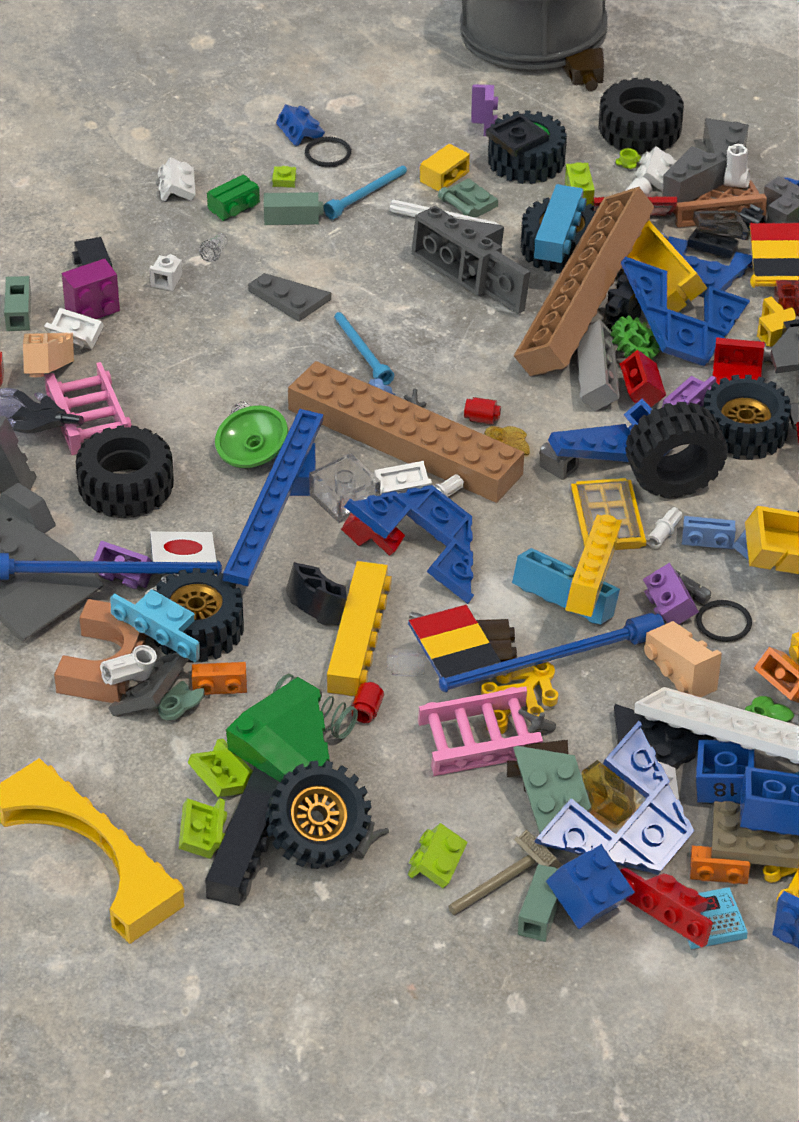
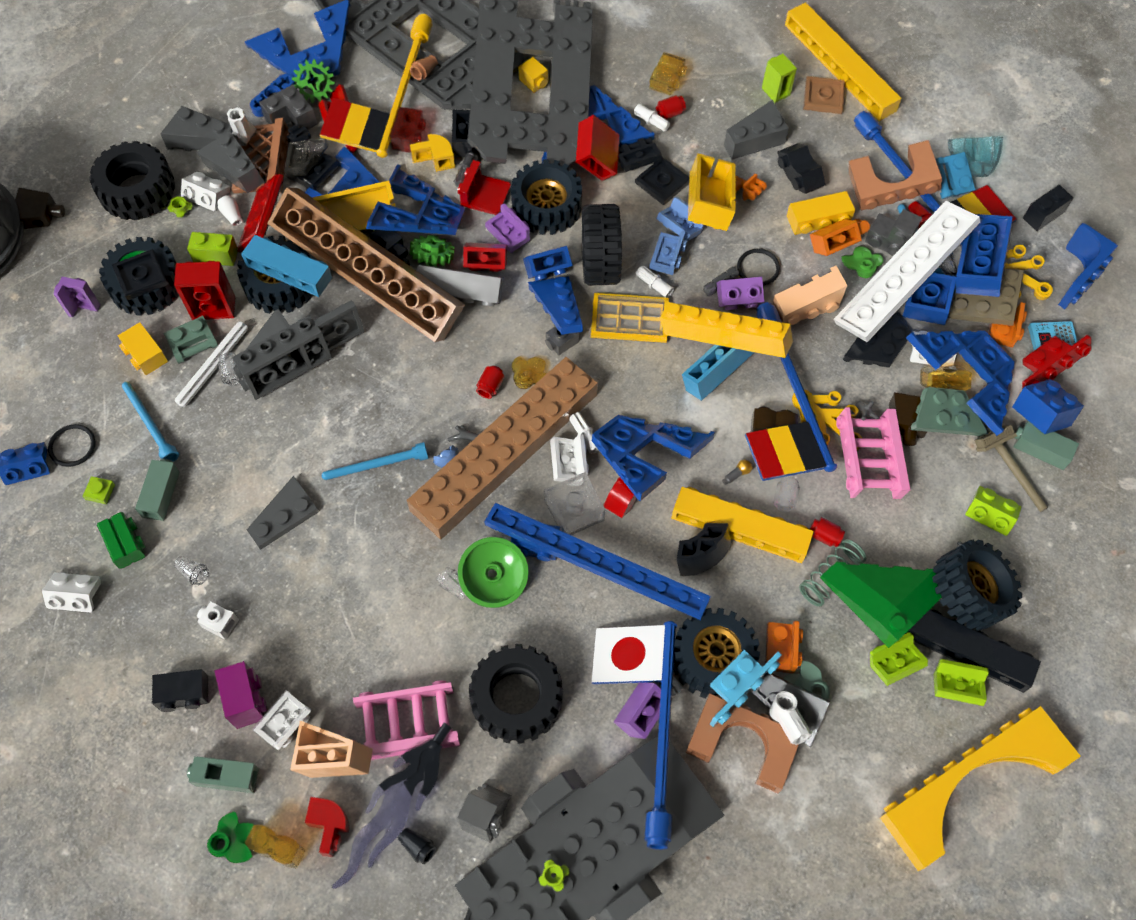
camera: 80 degrees left, 20 degrees up
(514, 180) = (205, 290): none -> red brick

